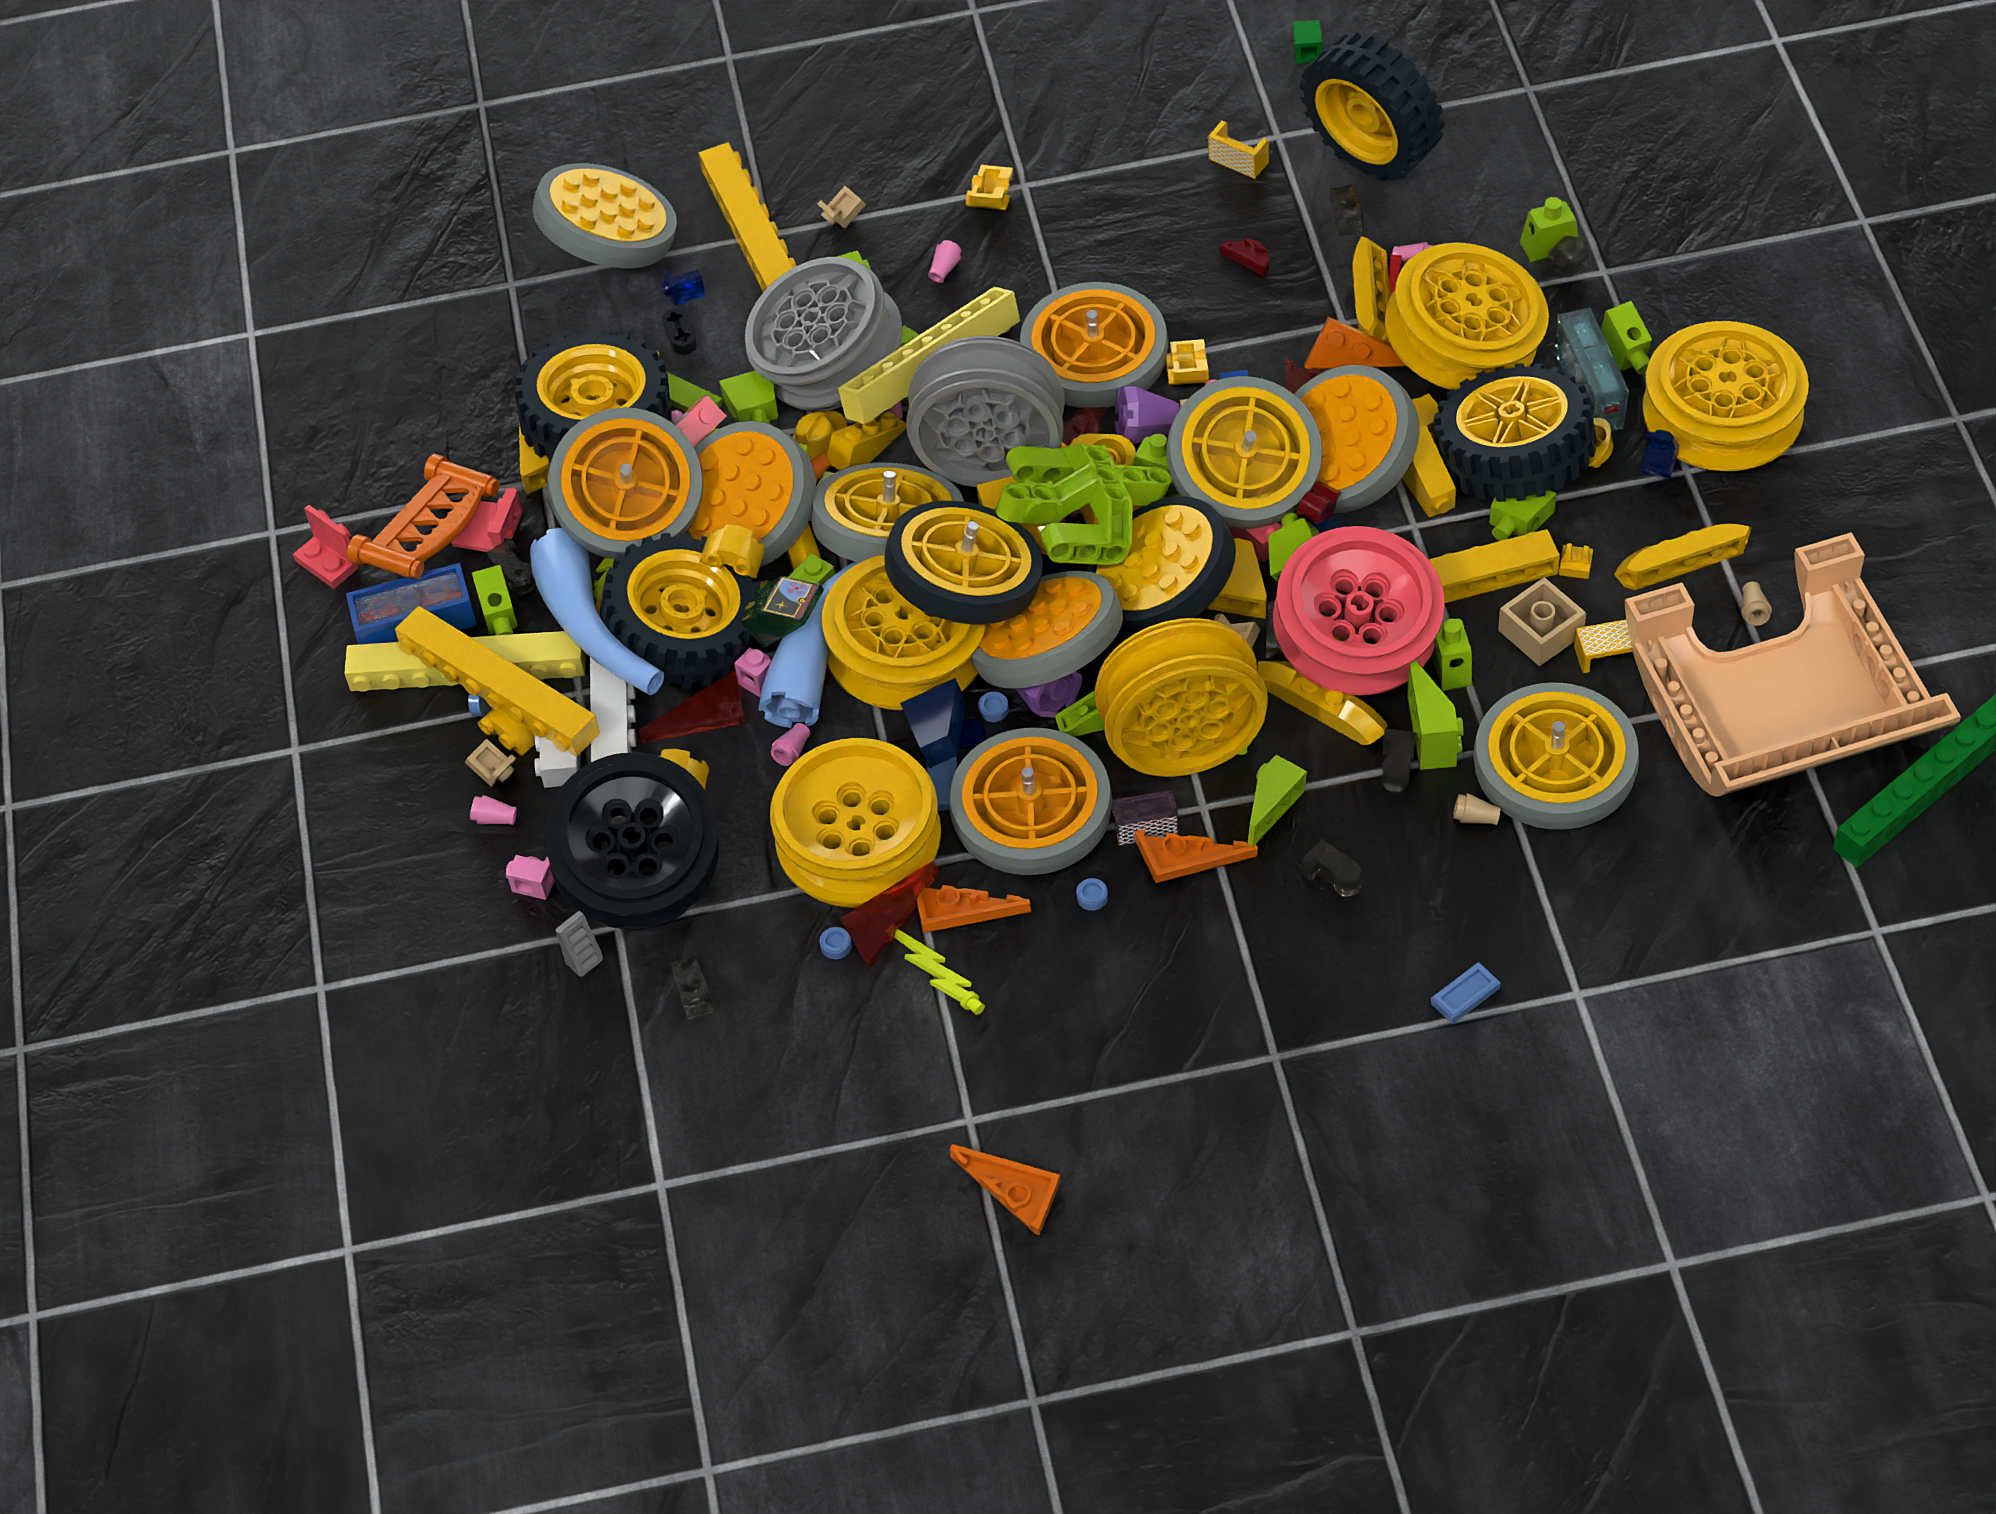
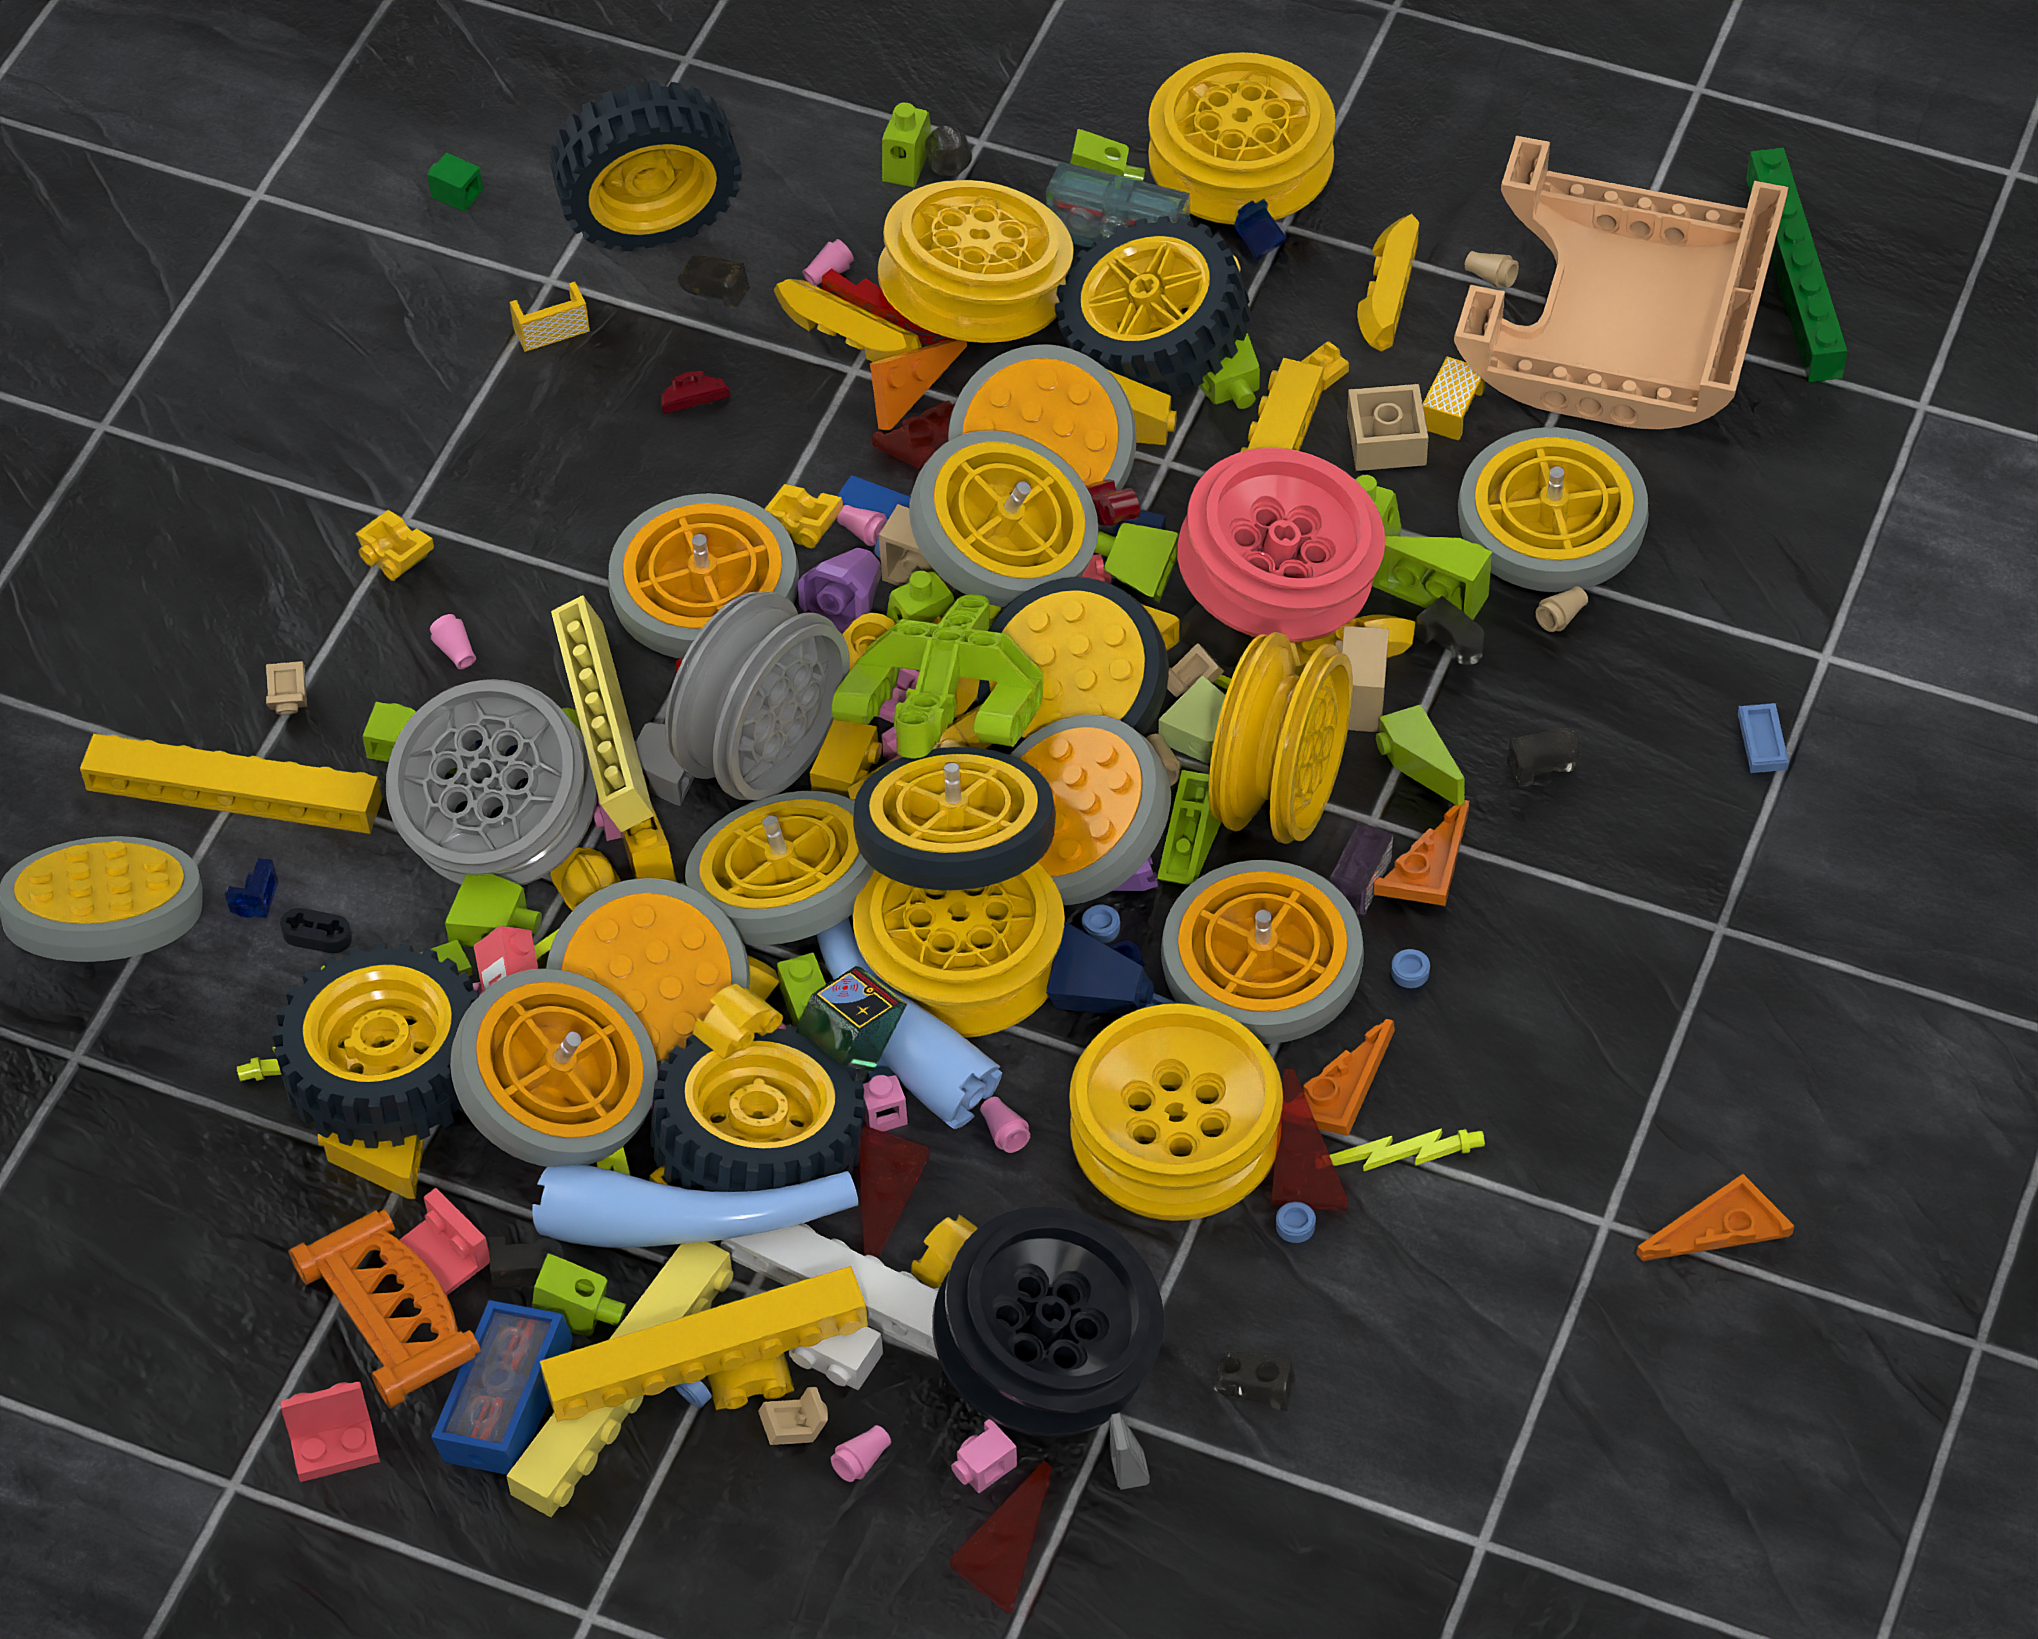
camera: 60 degrees left, 0 degrees up
(475, 923) = (999, 1549): none -> clear red wing
(1301, 725) = (1368, 660): none -> tan brick

